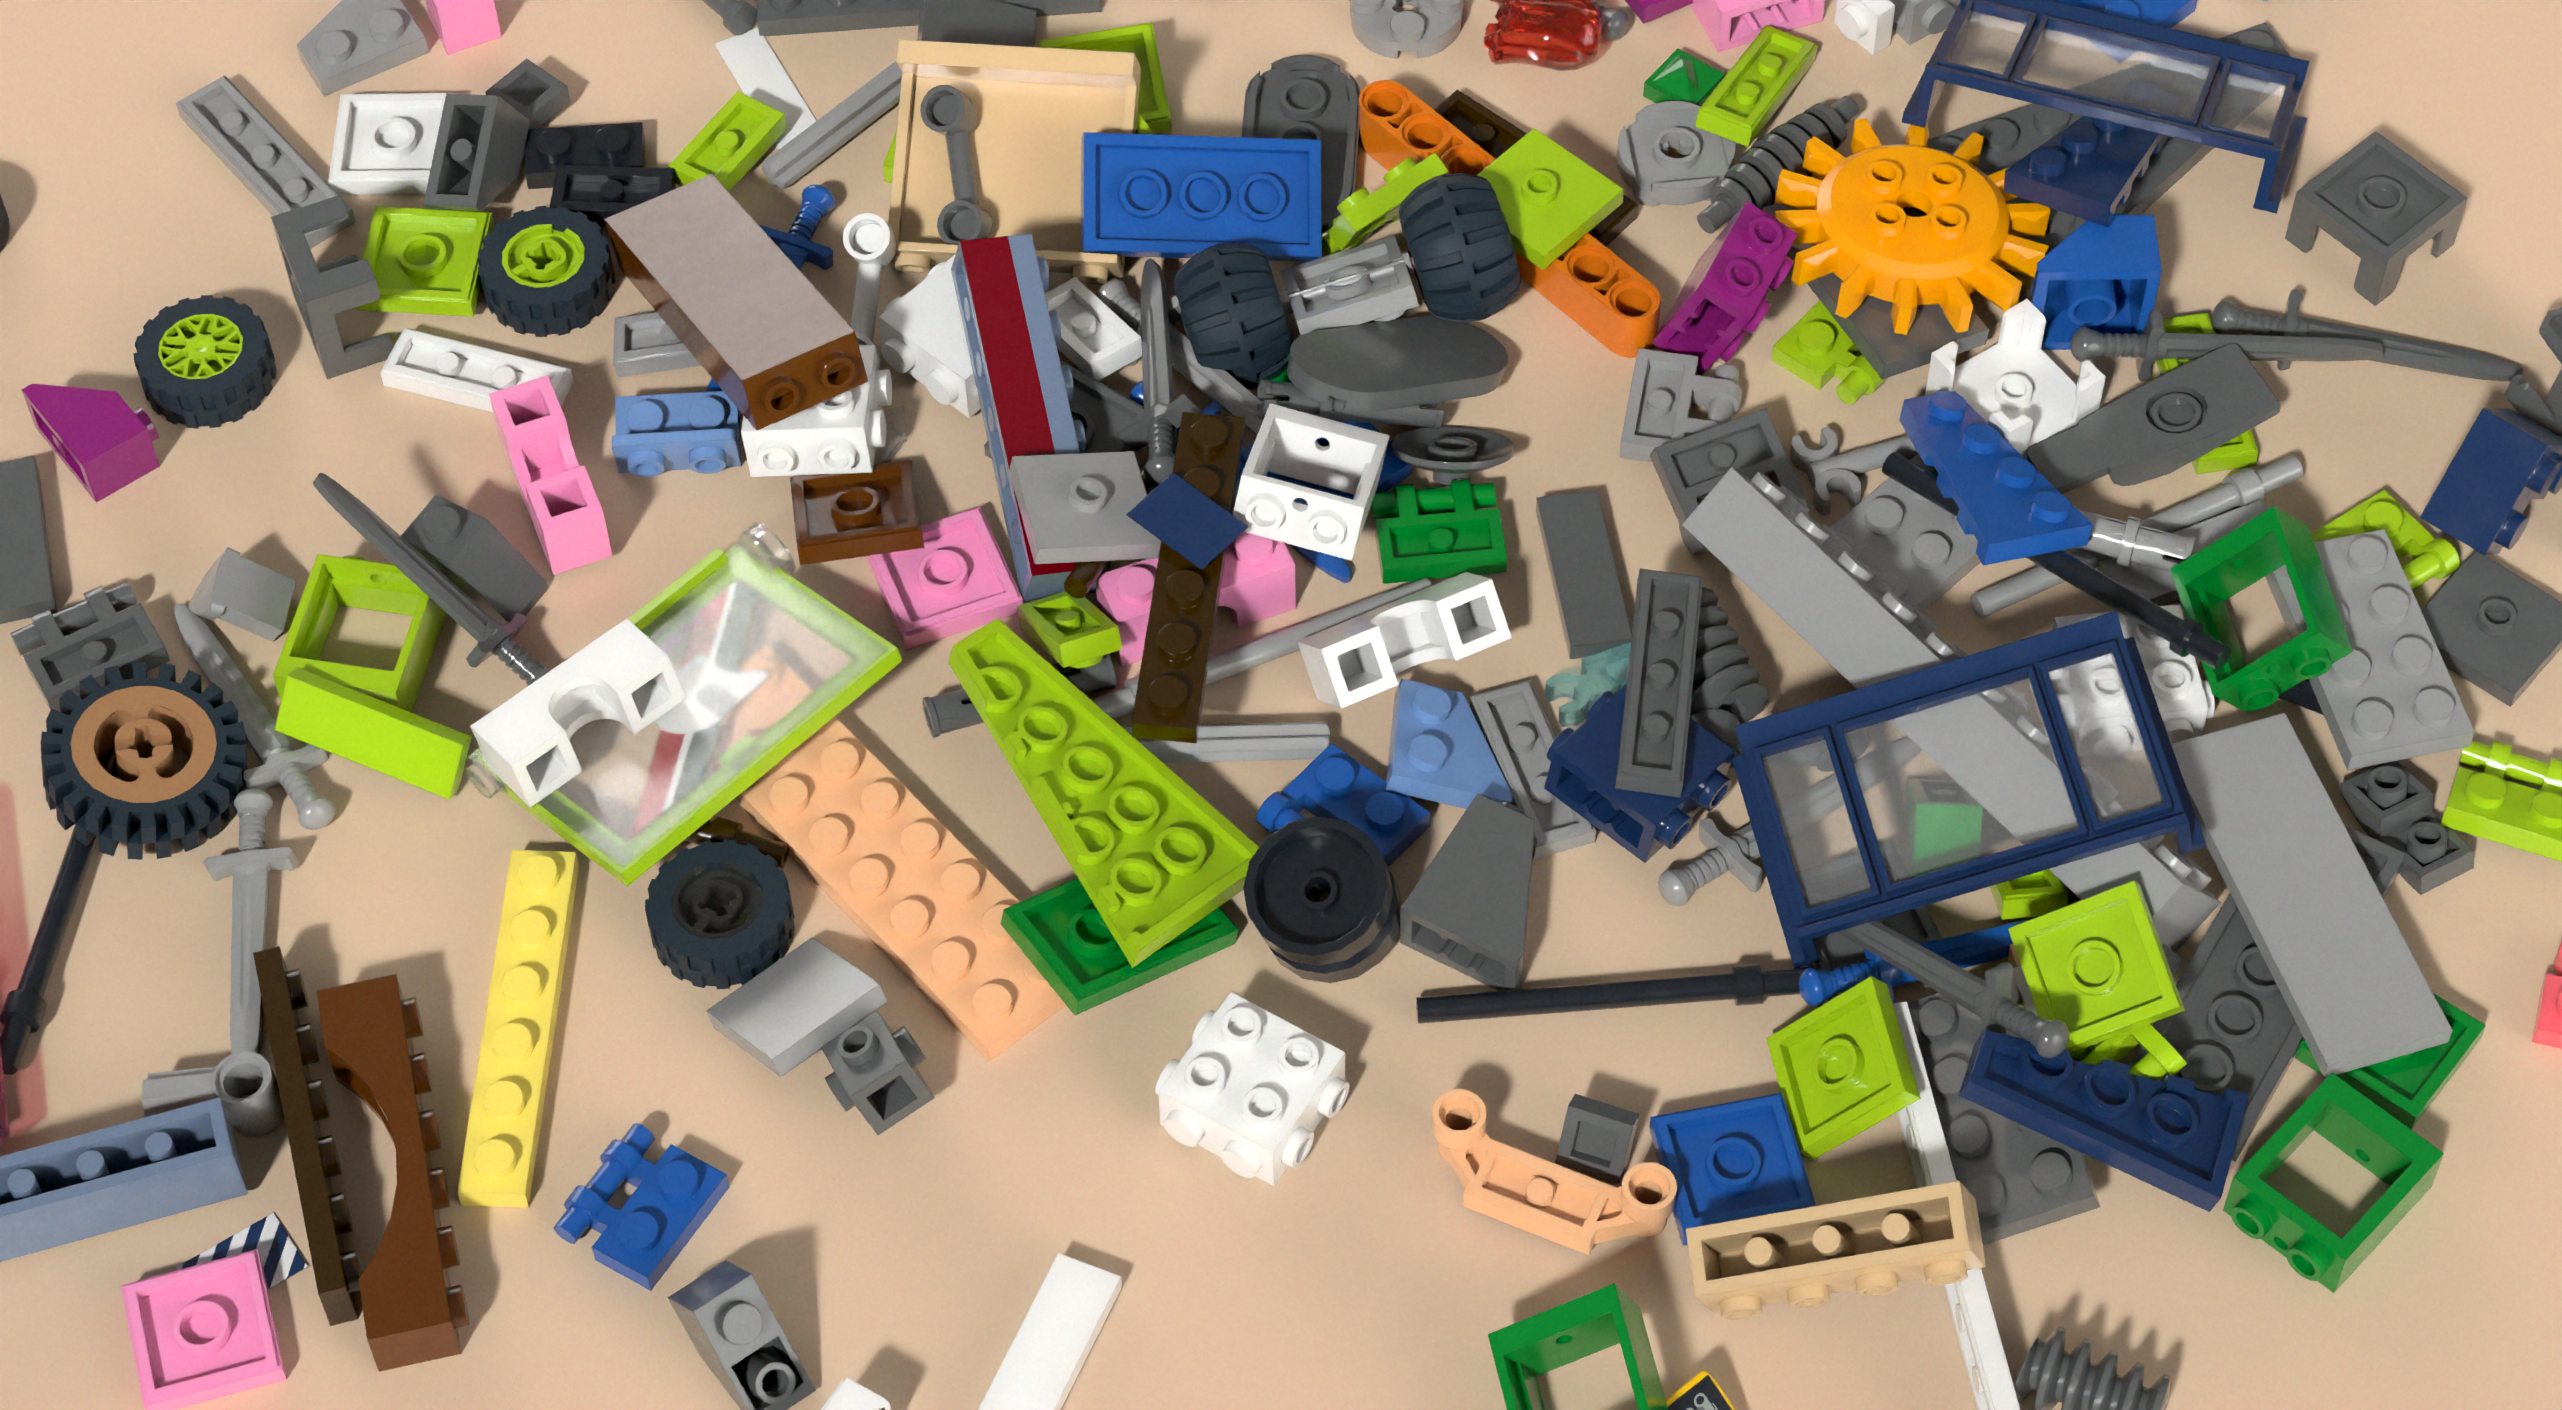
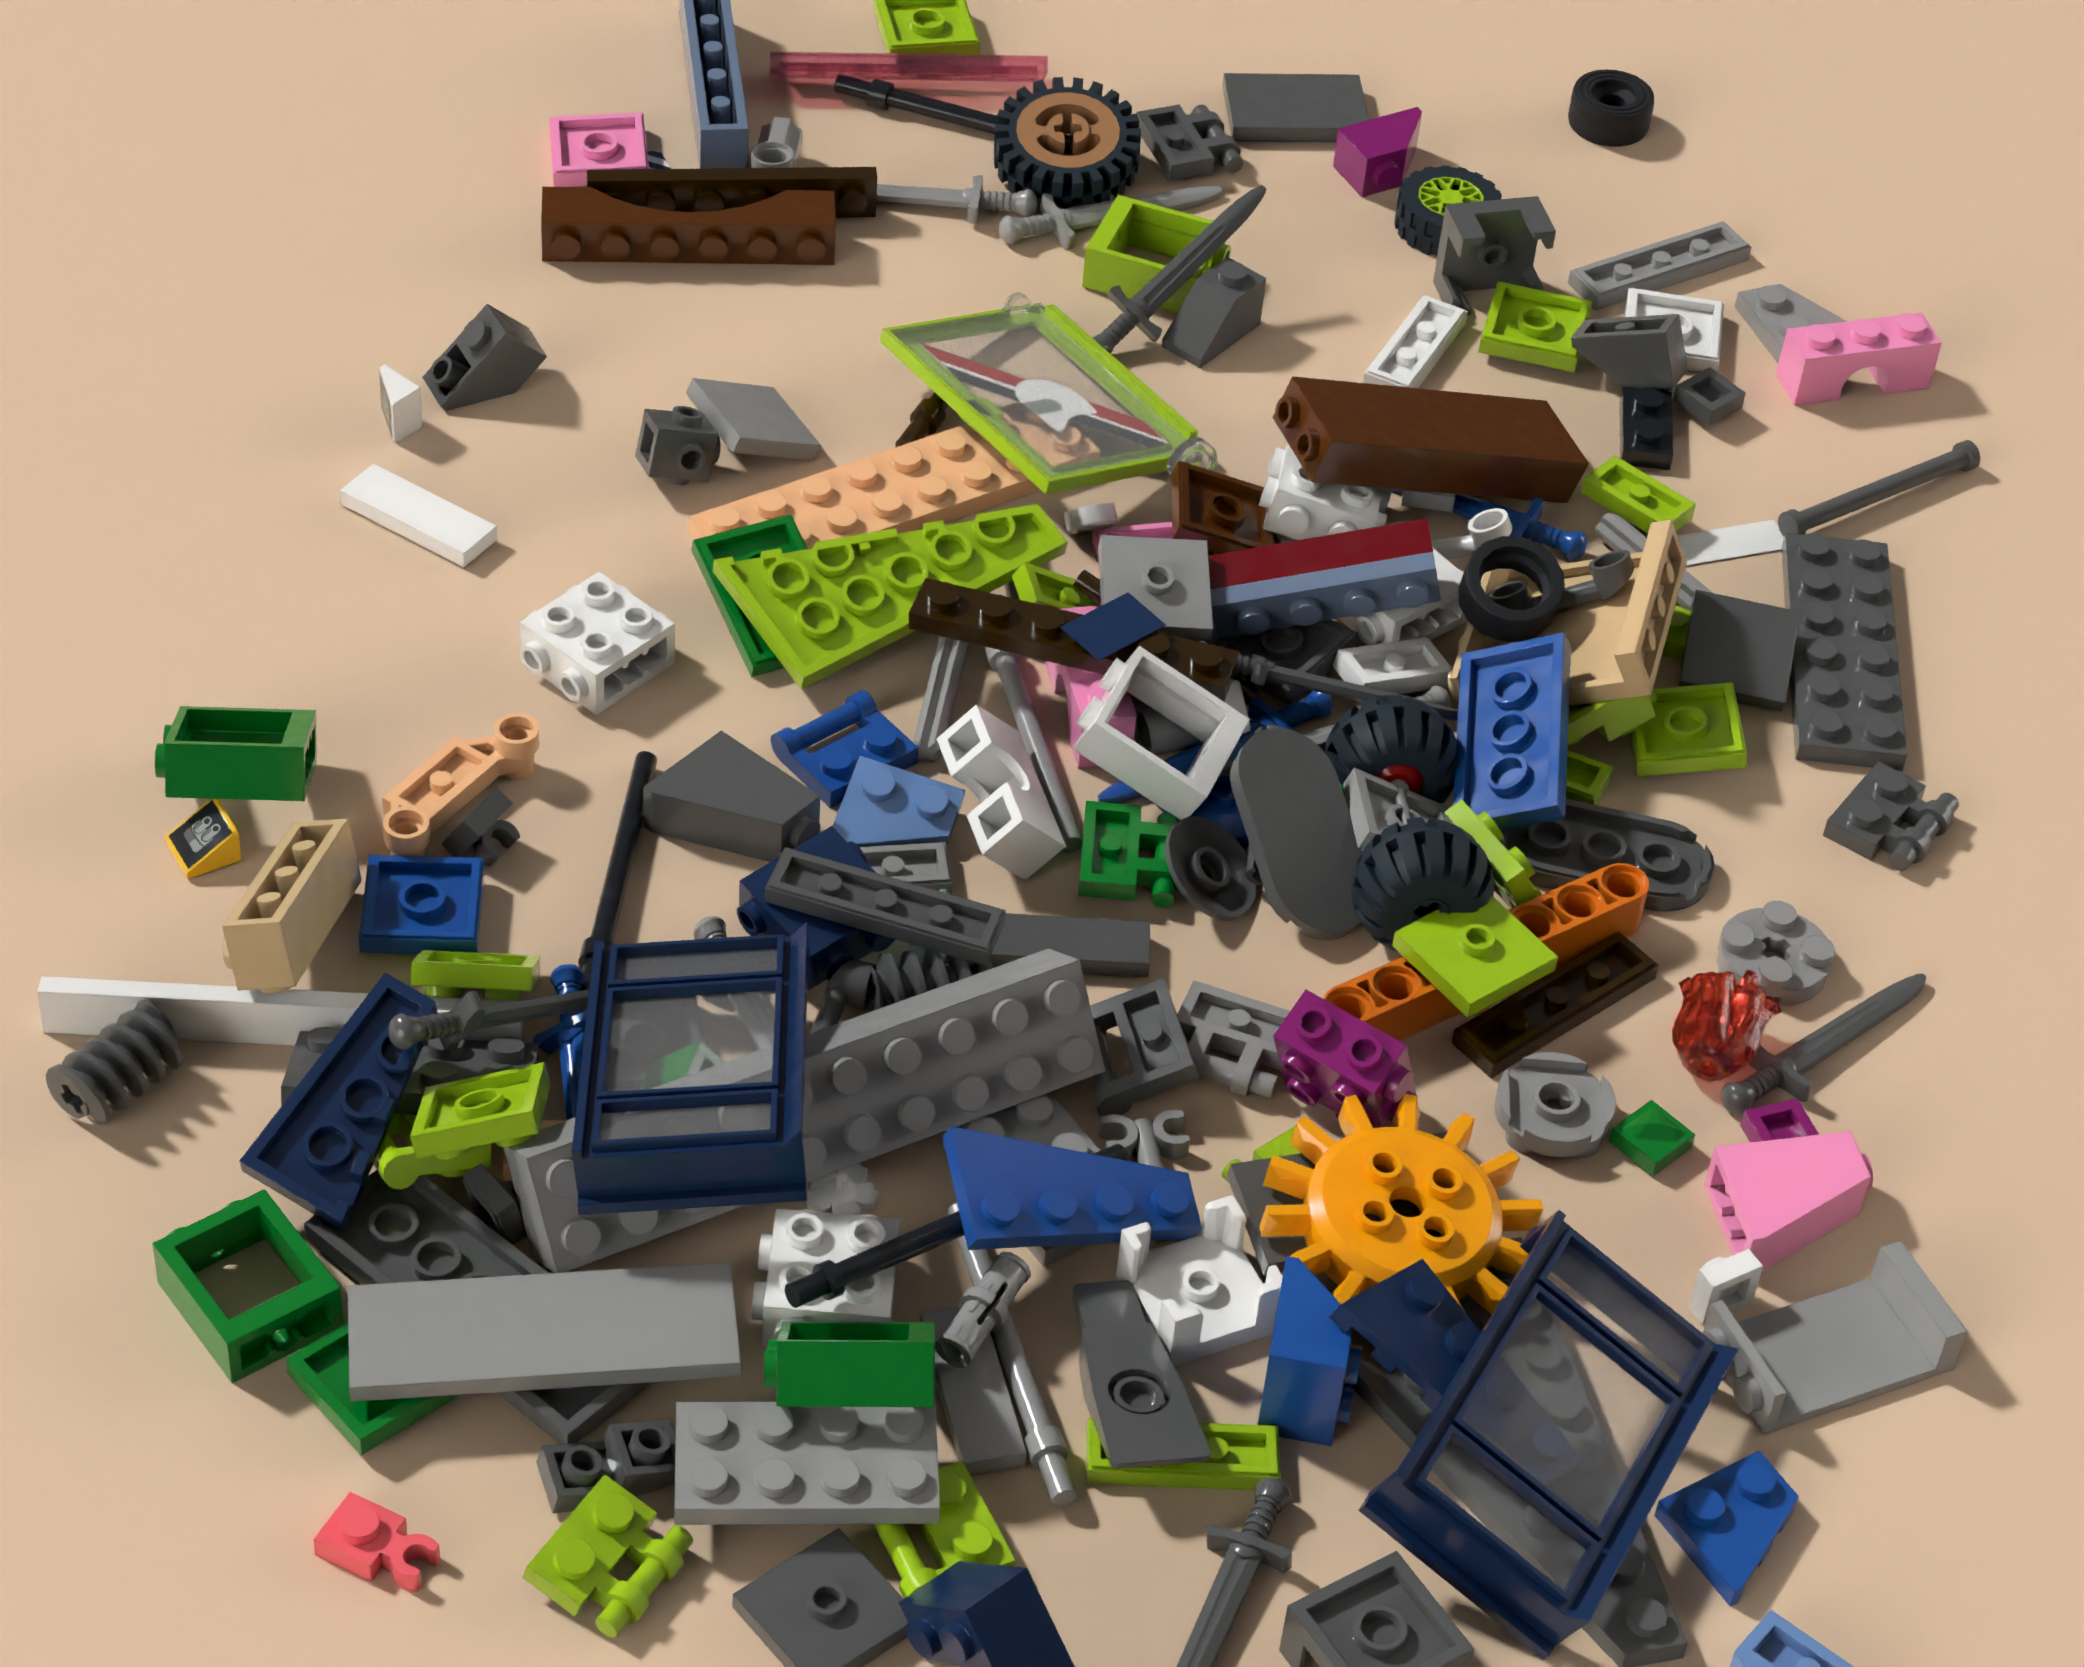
camera: 95 degrees right, 10 degrees down
(244, 595) = (1212, 195): light grey tile -> none
(373, 733) = (1064, 244): lime tile -> none
(519, 1030) = (780, 301): light yellow plate -> none
(546, 271) = (1516, 370): black wheel -> none
(549, 476) = (1246, 360): bright pink arch -> none
(608, 189) = (1593, 424): black plate -> none
(611, 678) = (1061, 342): white arch -> none
(658, 1216) = (611, 350): blue plate -> none
(725, 943) = (855, 401): black wheel -> none
(899, 628) = (1090, 517): none -> white tile
(993, 171) = (1523, 557): none -> black tyre
(1323, 899) = (745, 686): black wheel -> none
(1756, 85) = (1632, 1177): lime tile -> none
(1758, 169) = (1537, 1172): dark grey piece -> none
(2157, 345) = (1229, 1400): dark grey sword -> none

